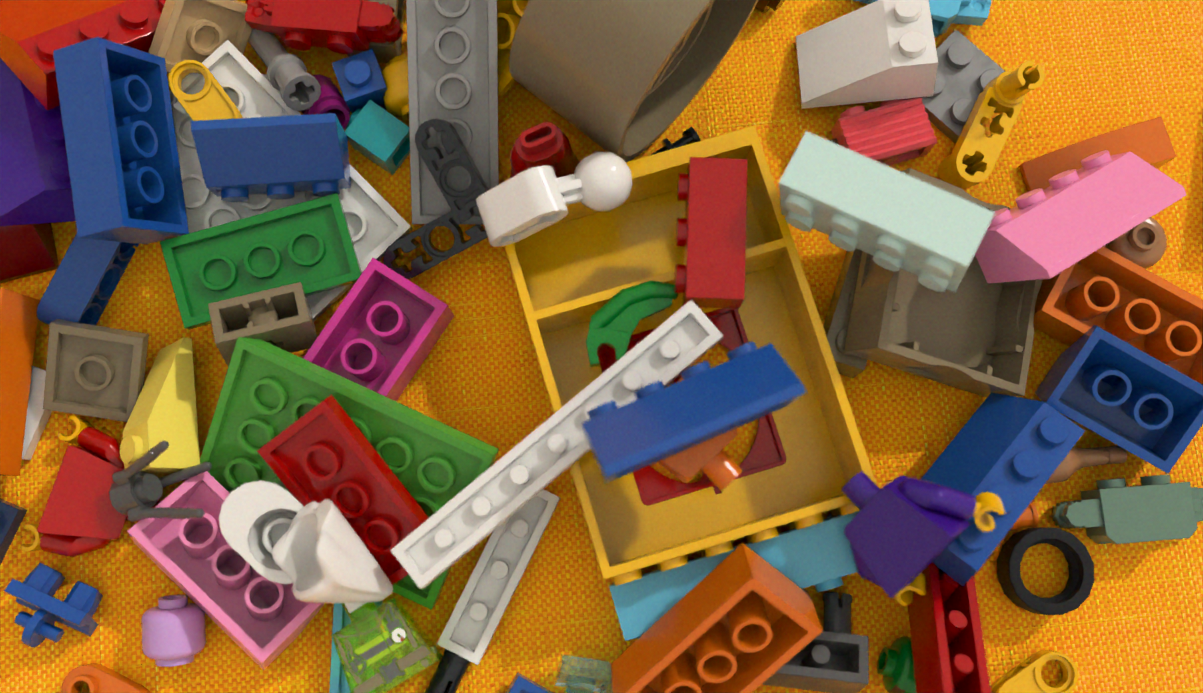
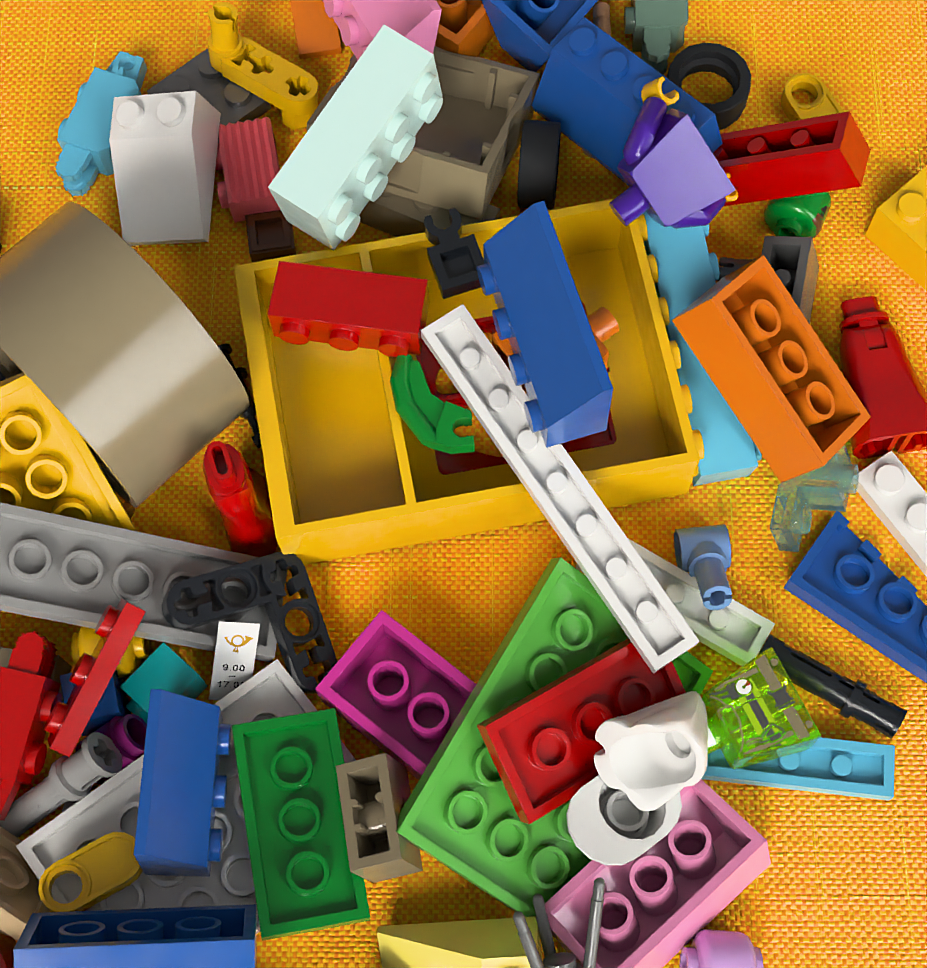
camera: 80 degrees left, 10 degrees down
(360, 70) = (92, 676): none -> red plate
(404, 189) = (233, 657): none -> white sticker
(538, 595) = (706, 555): none -> medium blue pin
(540, 199) = (279, 412): white beam -> none
(781, 325) = (453, 258): none -> black plate
(922, 404) = (538, 163): none -> black tyre

